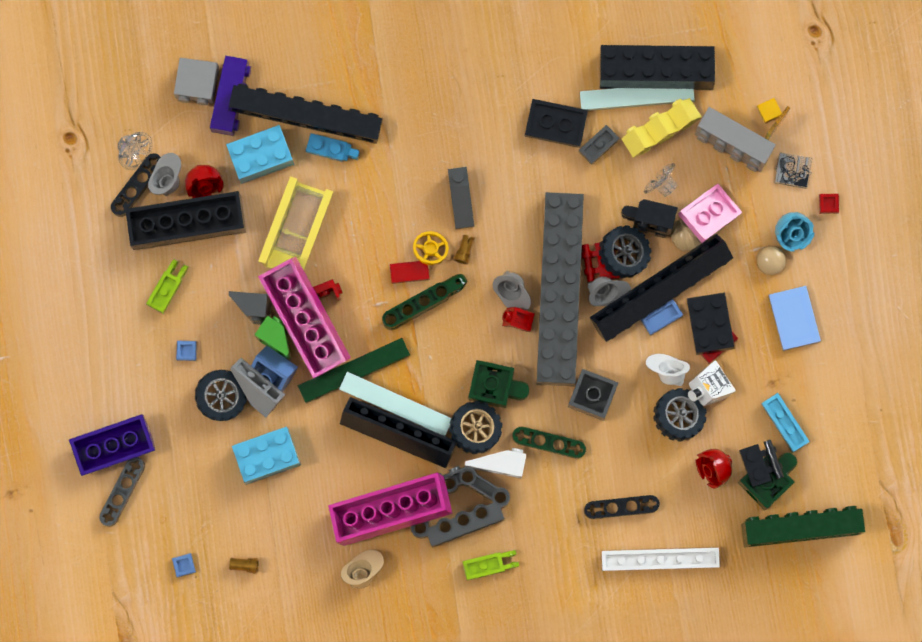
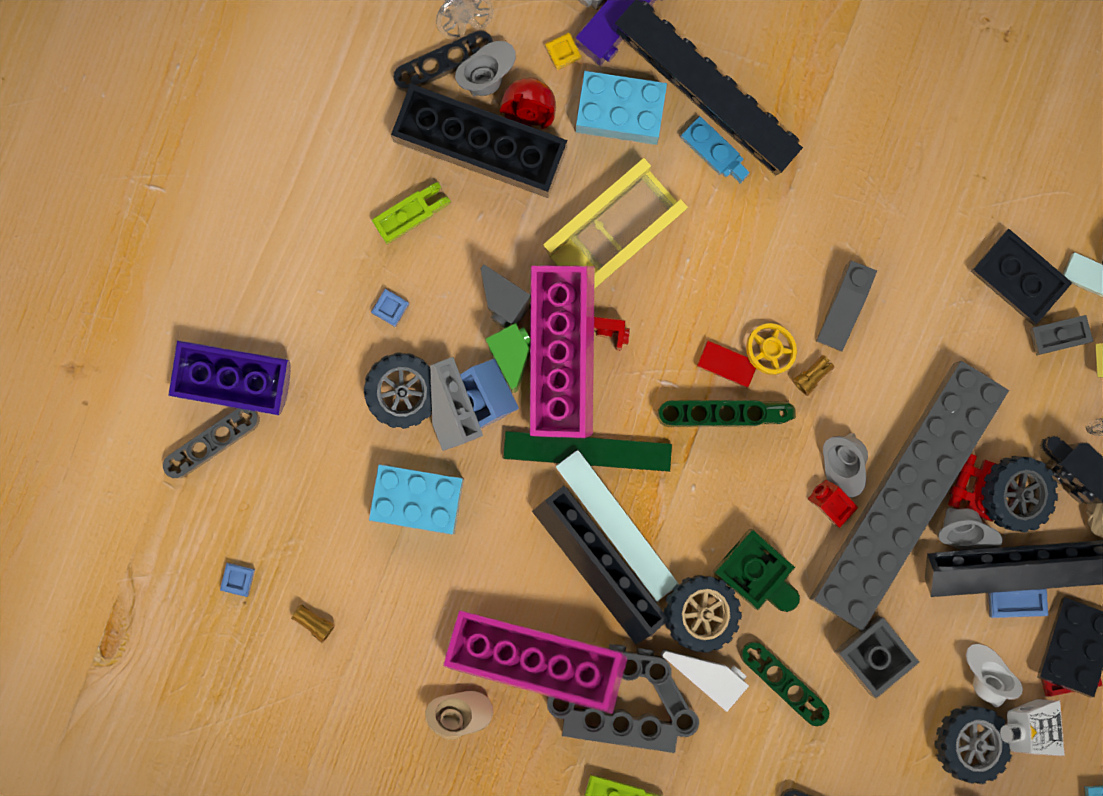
camera: 25 degrees right, 5 degrees up
(206, 139) = (563, 51): none -> yellow tile

